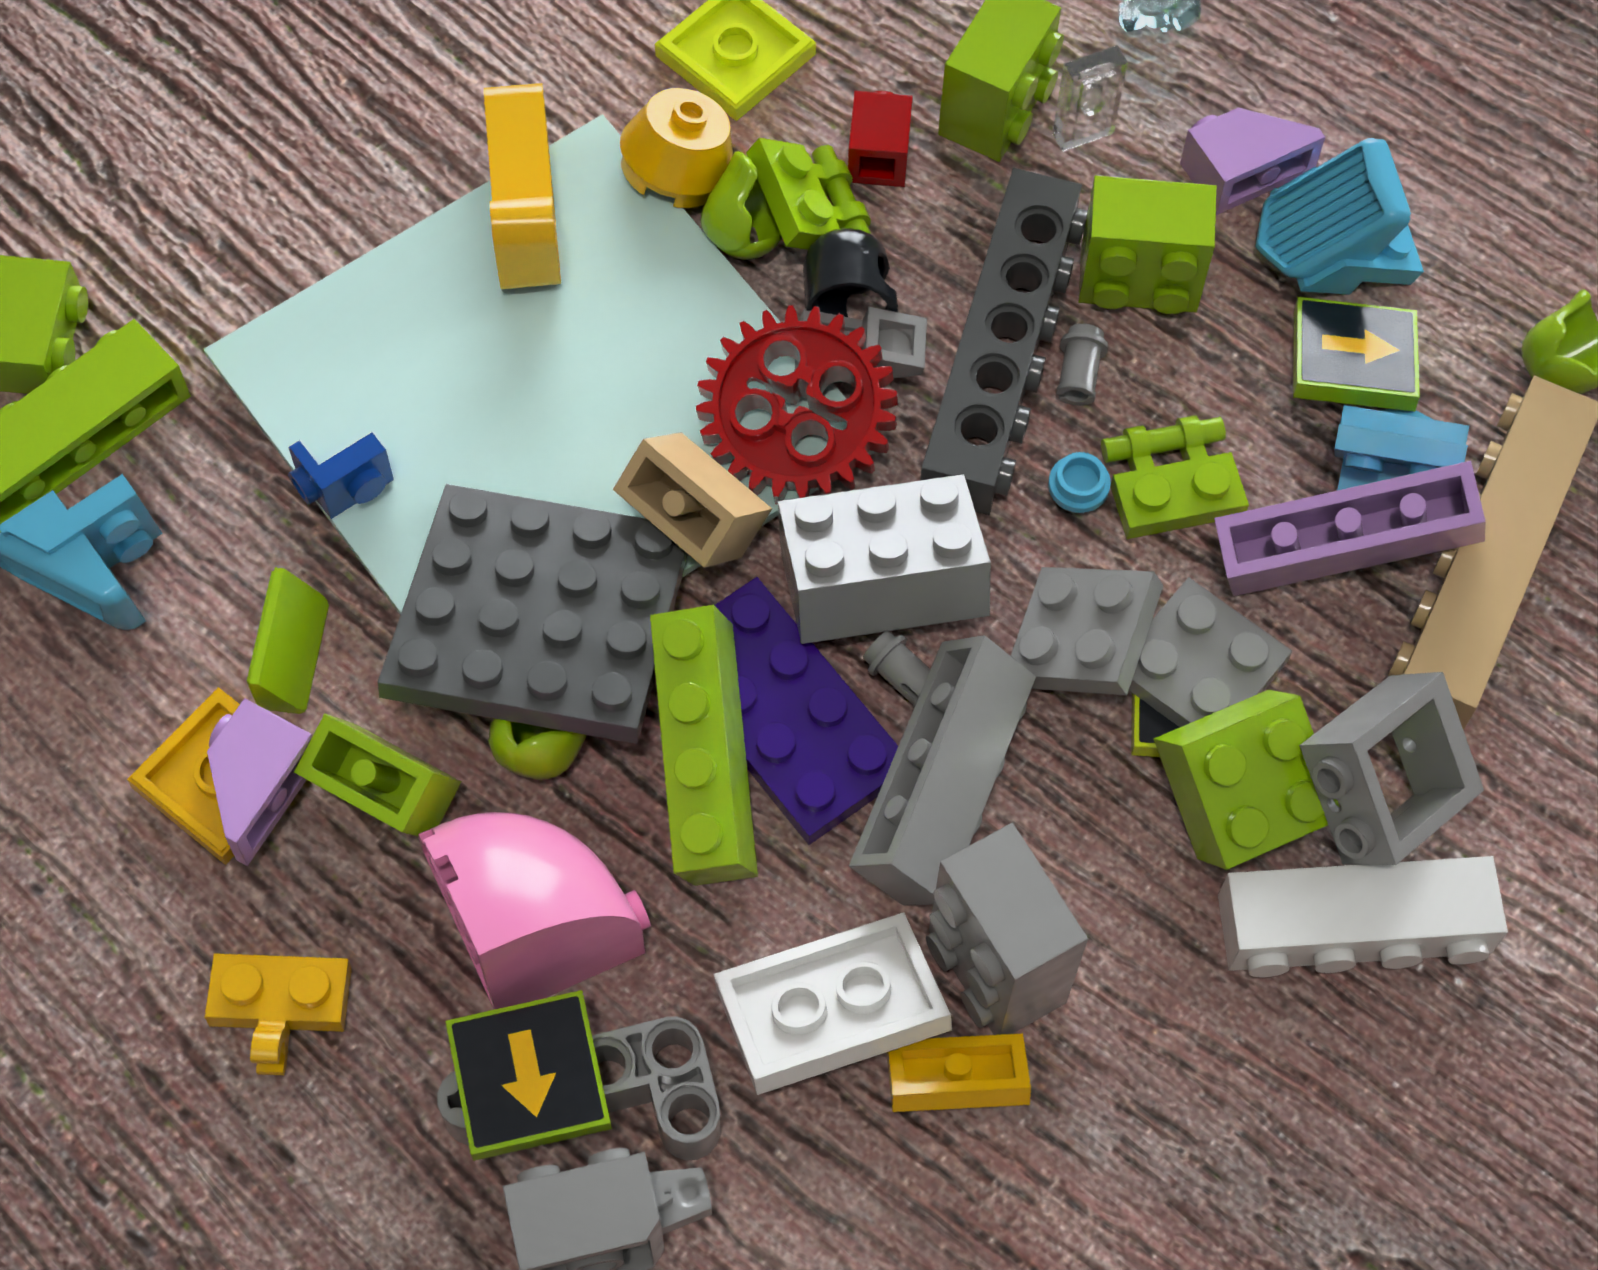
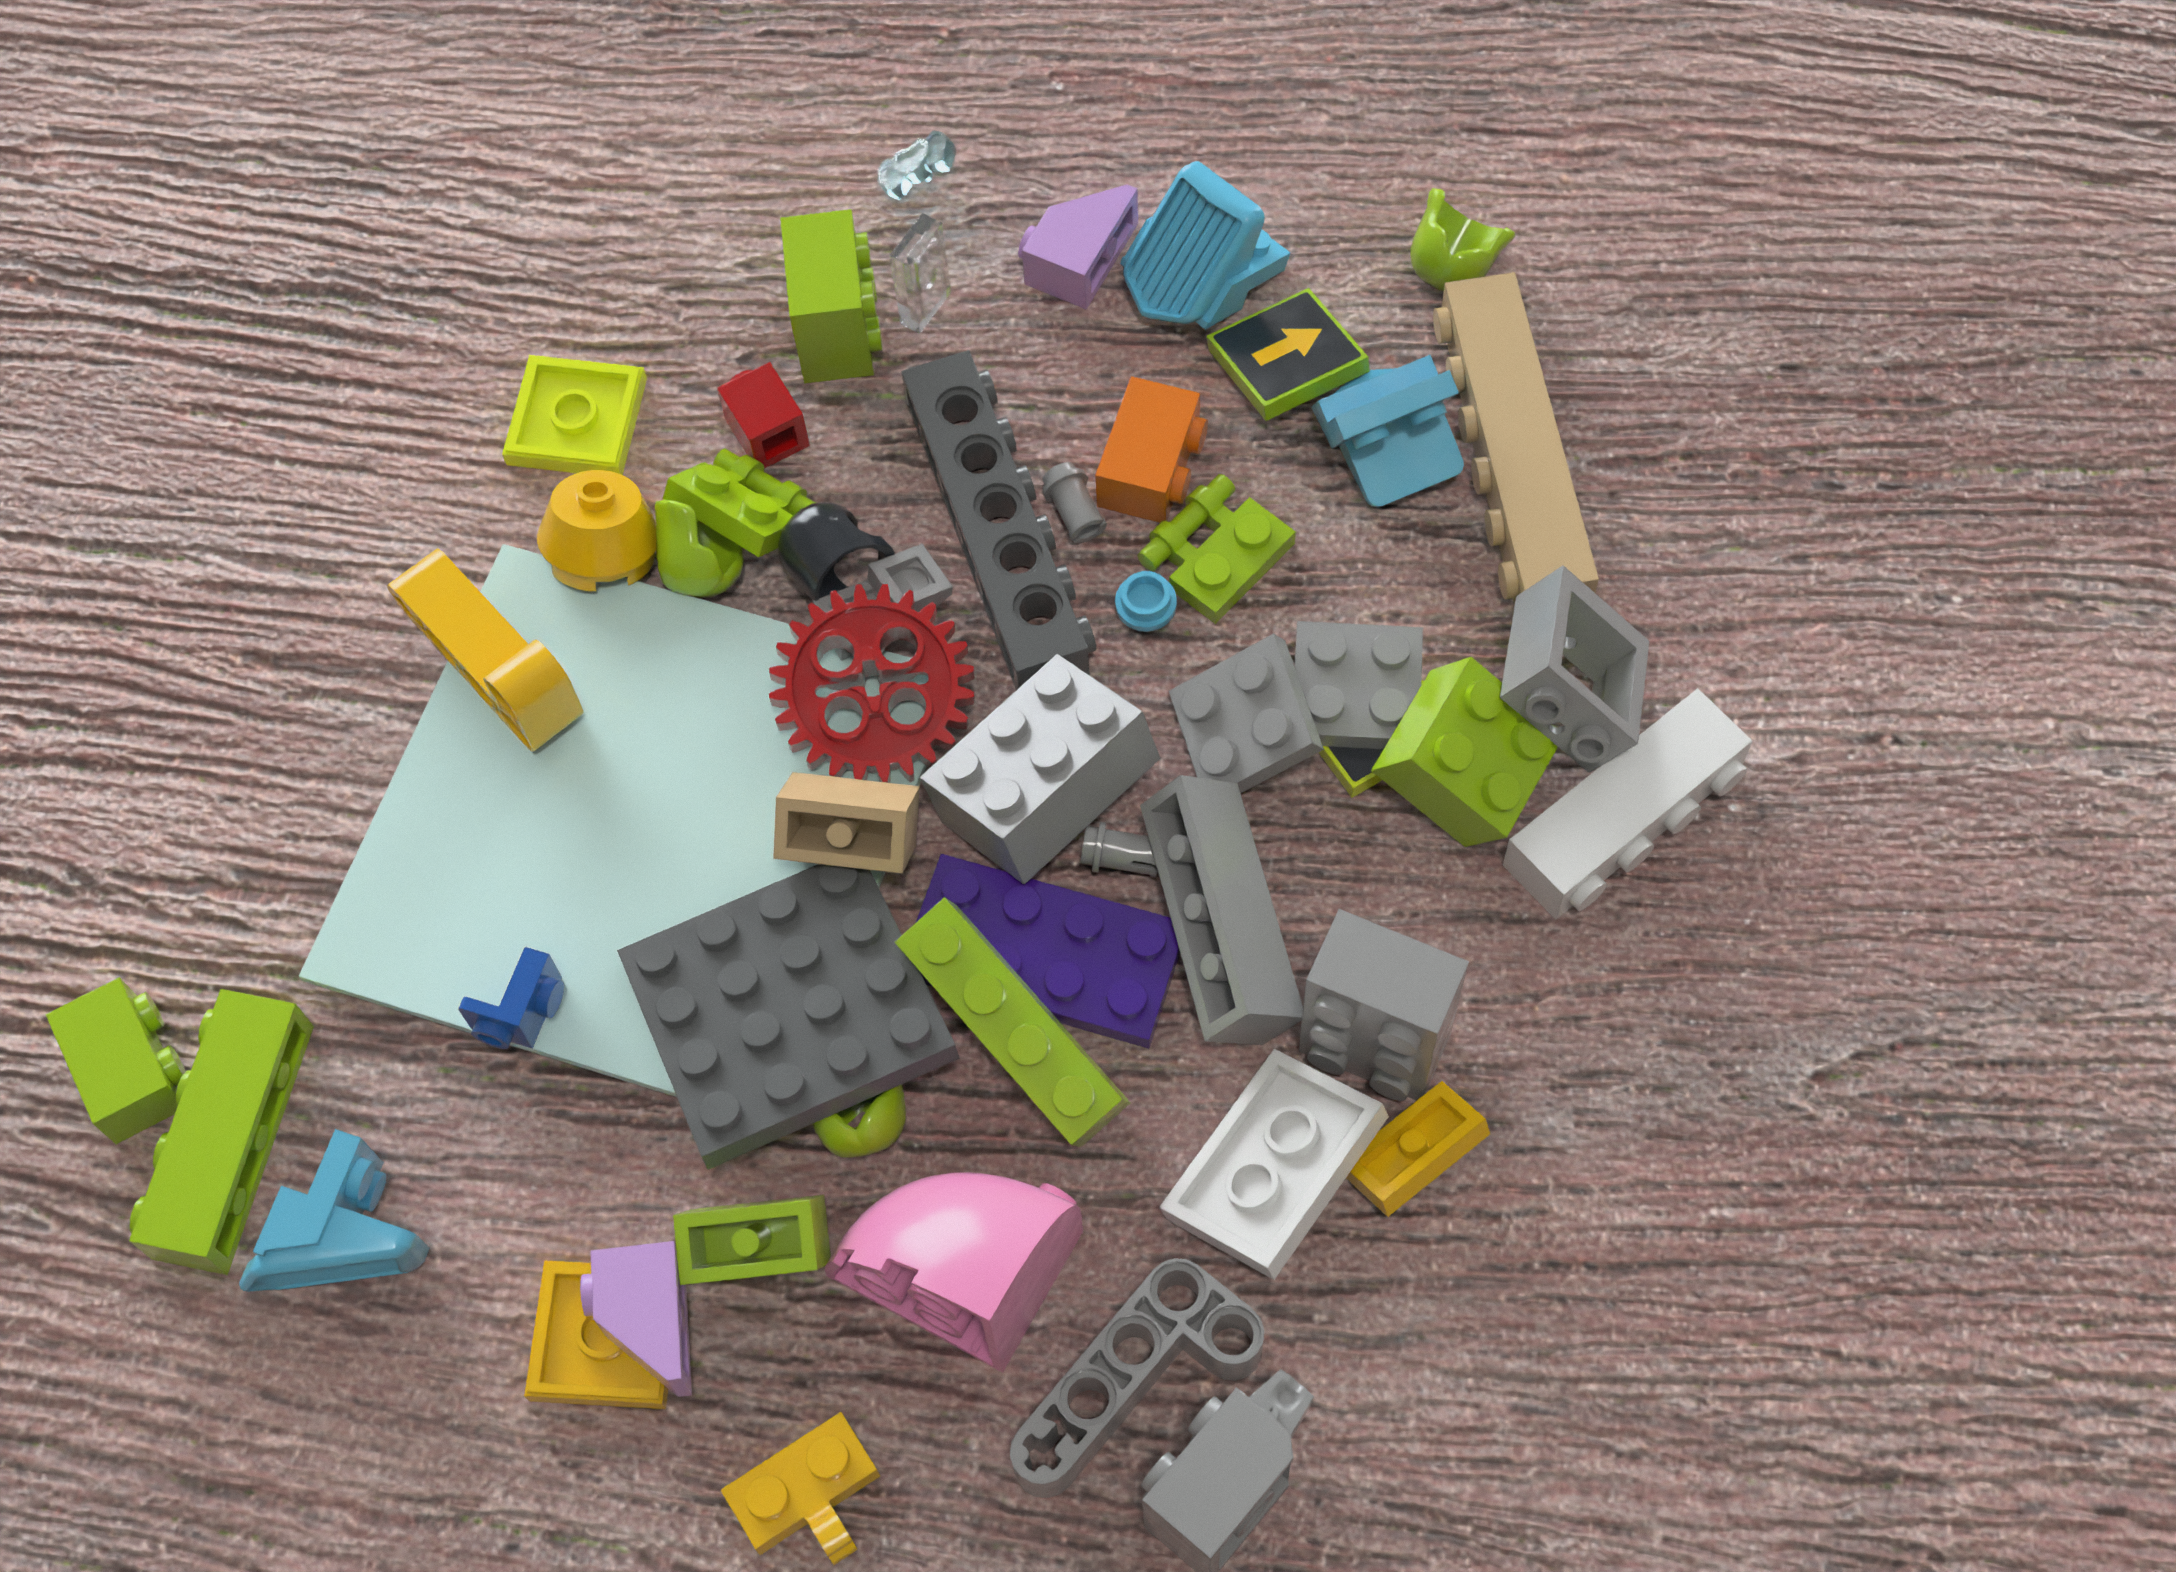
camera: 30 degrees left, 0 degrees up
(287, 644) = (578, 1181): lime slope -> none
(527, 1075) = (1080, 1396): black tile -> none
(1147, 244) = (1060, 366): lime brick -> none
(1175, 360) = (1149, 450): none -> orange brick
(1351, 528) = (1400, 497): lavender brick -> none

